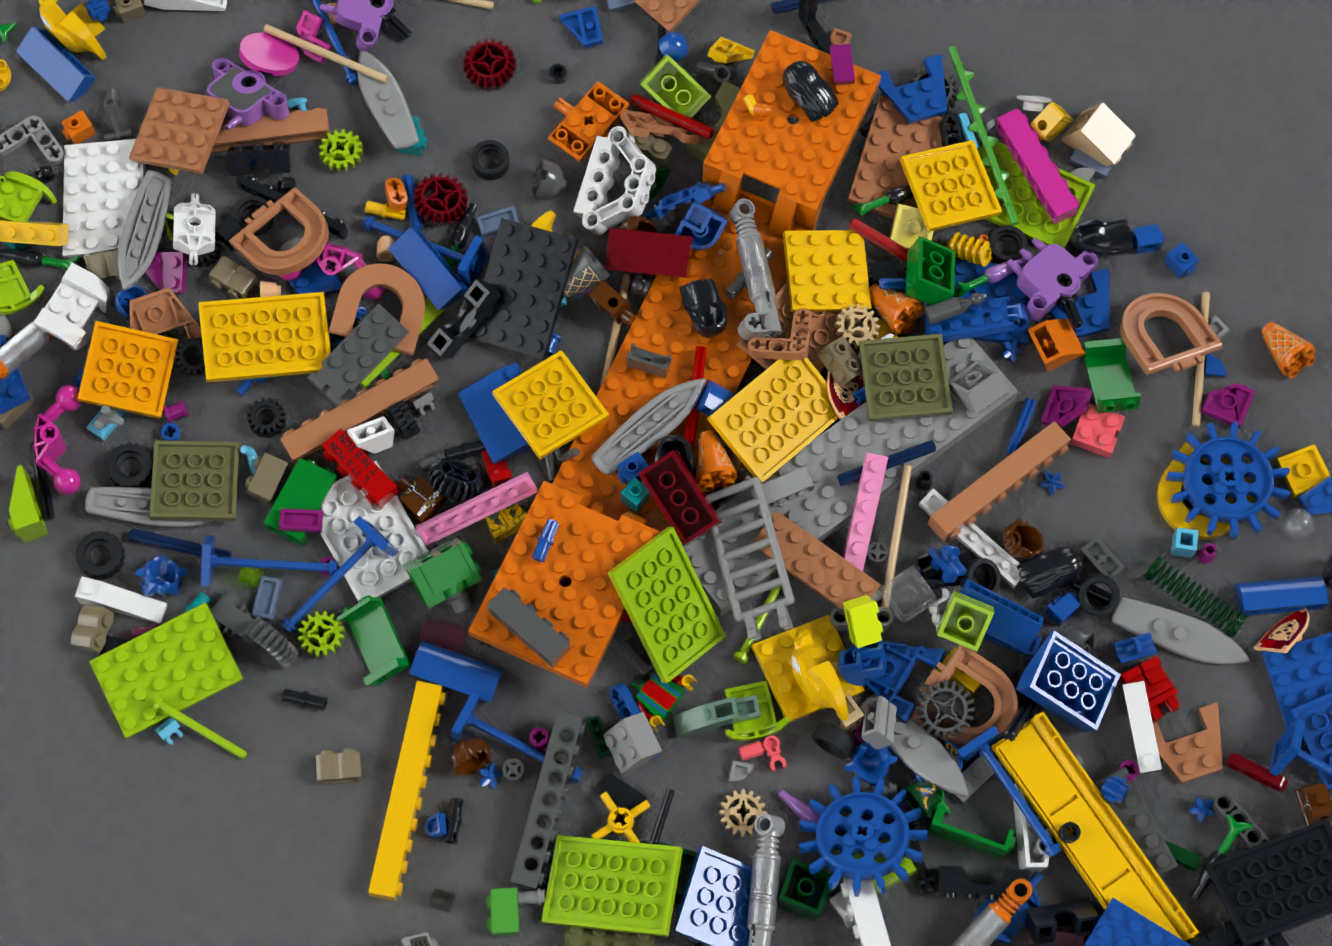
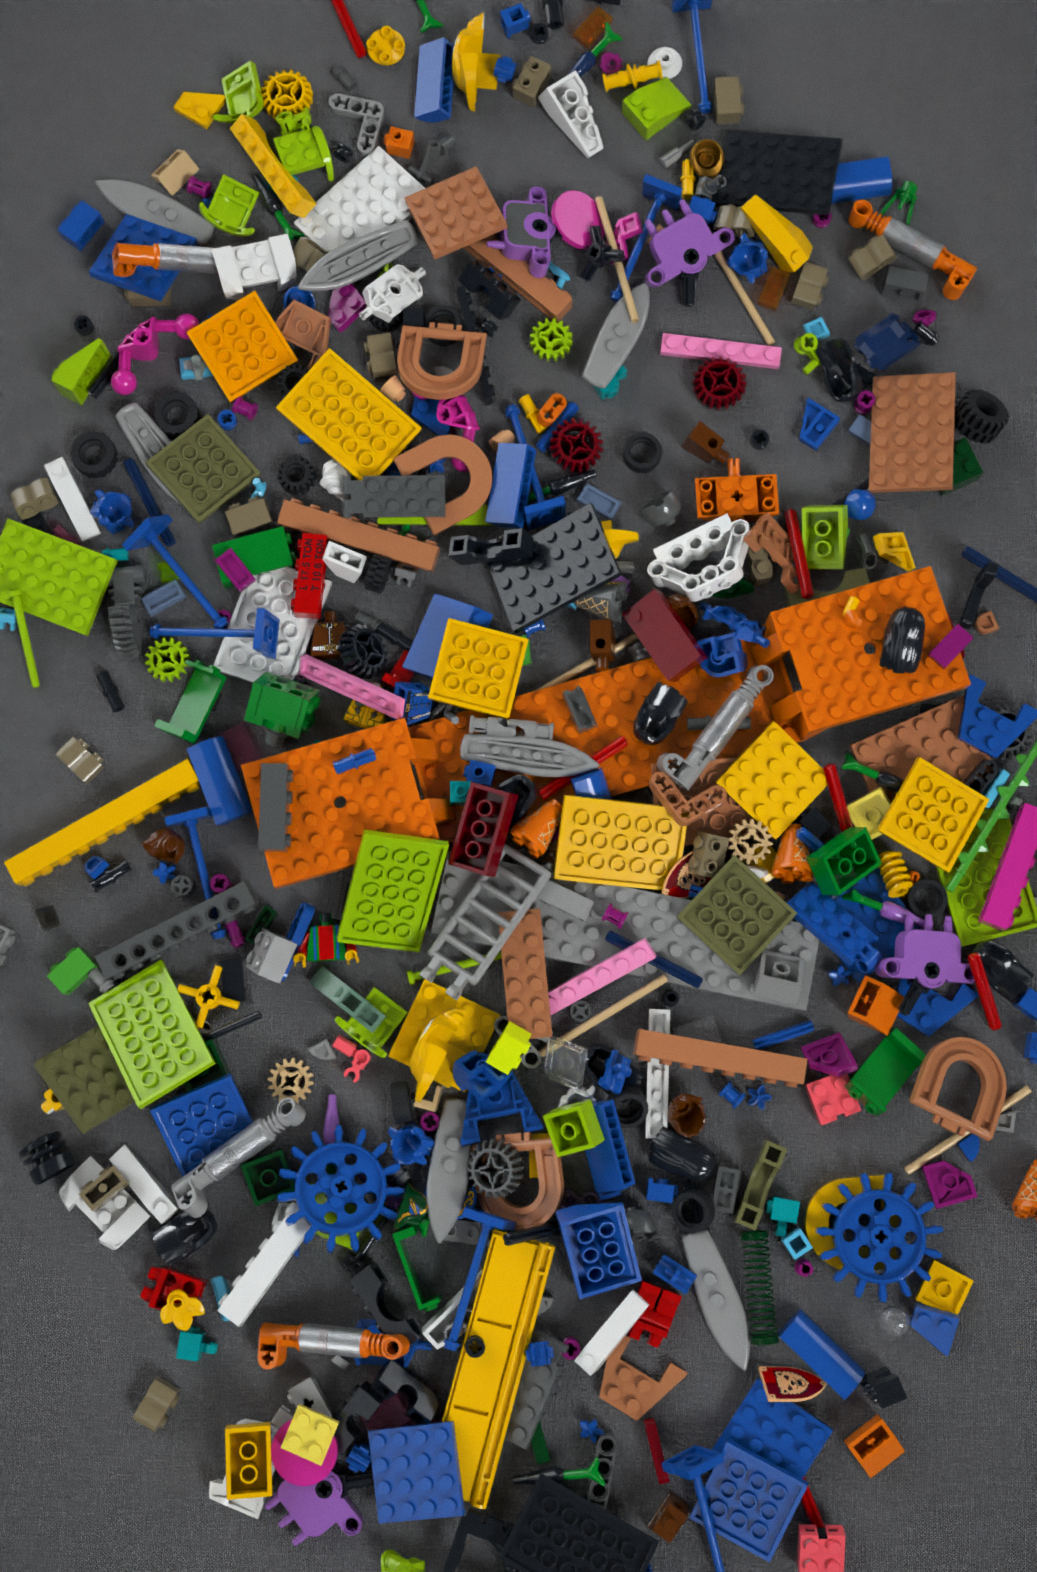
camera: 55 degrees right, 10 degrees up
(300, 390) = (333, 479): none -> white hair
(311, 60) = (599, 254): none -> black bush
(455, 50) = (707, 348): none -> bright pink plate
(526, 111) = (705, 444): none -> reddish brown torso
(534, 468) = (417, 704): none -> blue torso
(588, 762) = (235, 934): none -> magenta pin
(615, 421) = (507, 727): none -> light grey piece
(829, 462) = (614, 916): none -> magenta bush
(879, 722) = (440, 1127): light grey brick -> none
(951, 308) = (827, 902): dark grey wheel -> none
(1034, 498) = (731, 1094): none -> blue bush
(1110, 260) = (984, 991): none -> red axle
(1126, 547) = (759, 1183): none -> olive arch
(1154, 533) = (783, 1211): none -> teal brick

